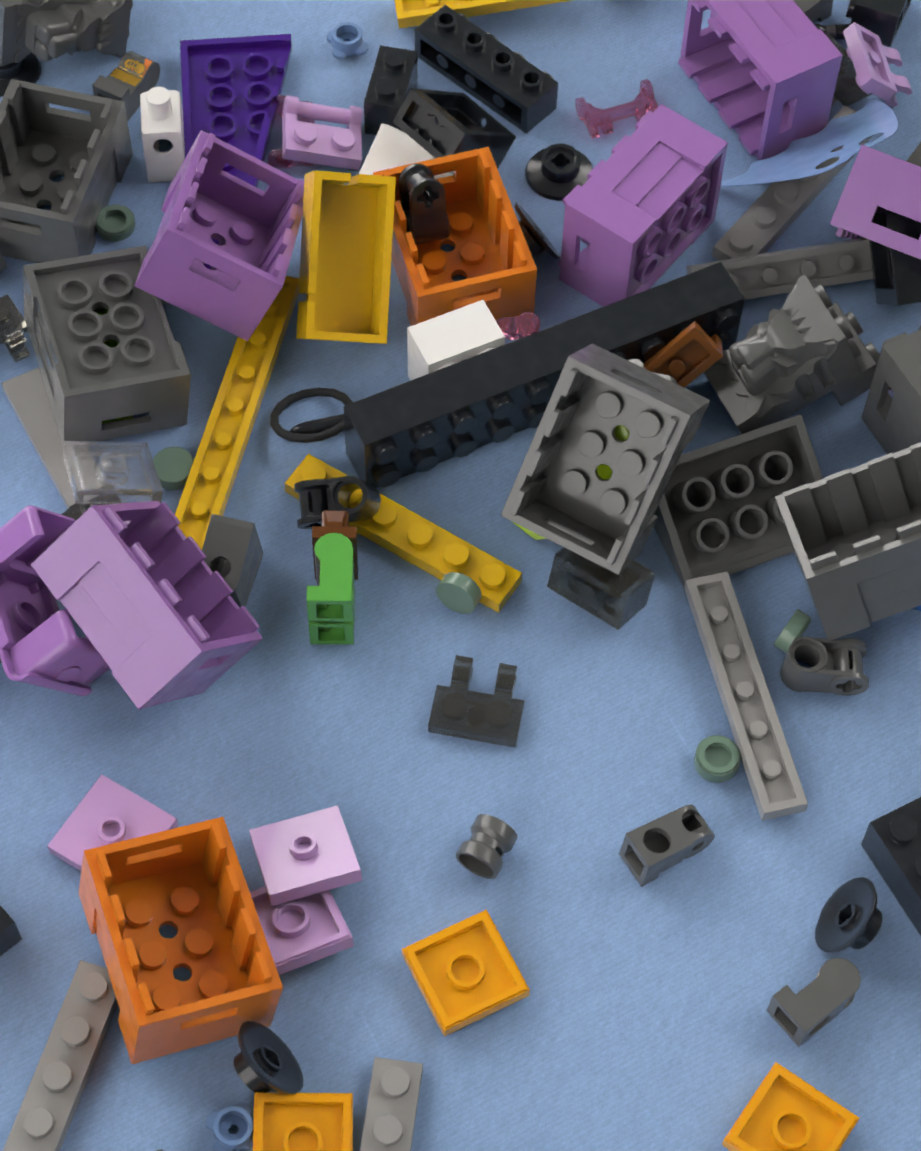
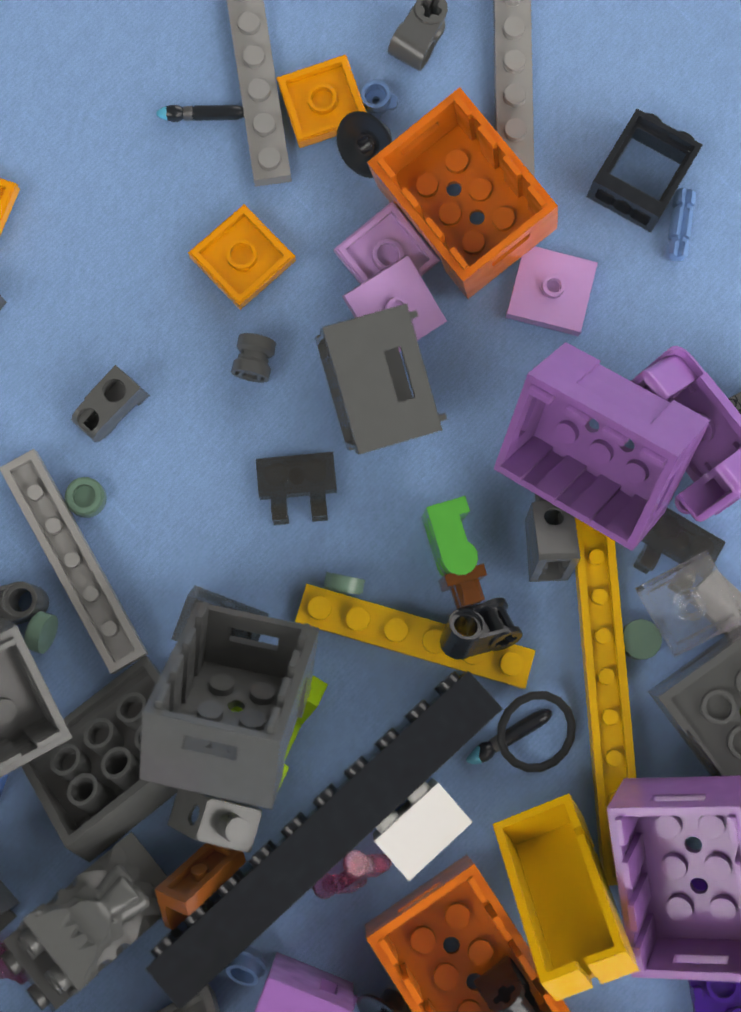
camera: 160 degrees right, 20 degrees up
(359, 725) = (371, 382): none -> dark grey container

